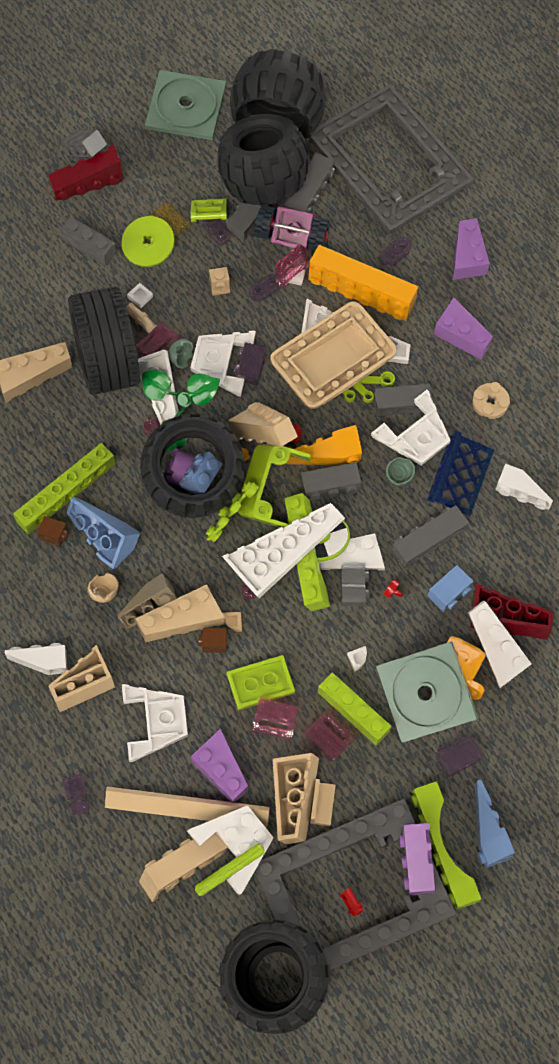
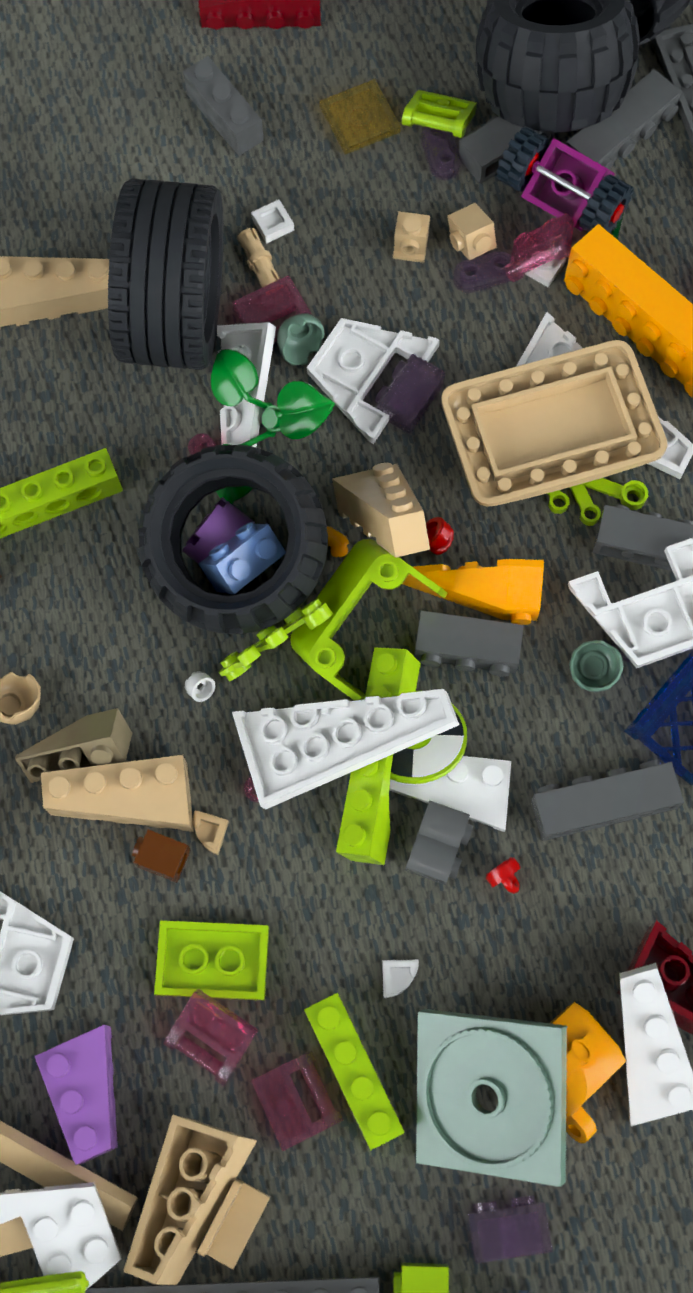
camera: 25 degrees right, 5 degrees up
(108, 534) = (63, 608): medium blue wedge -> none
(147, 254) = (343, 133): lime piece -> none
(201, 547) = (206, 689): none -> white hinge
(251, 268) = (472, 231): none -> tan brick
(450, 589) = (607, 911): medium blue brick -> none

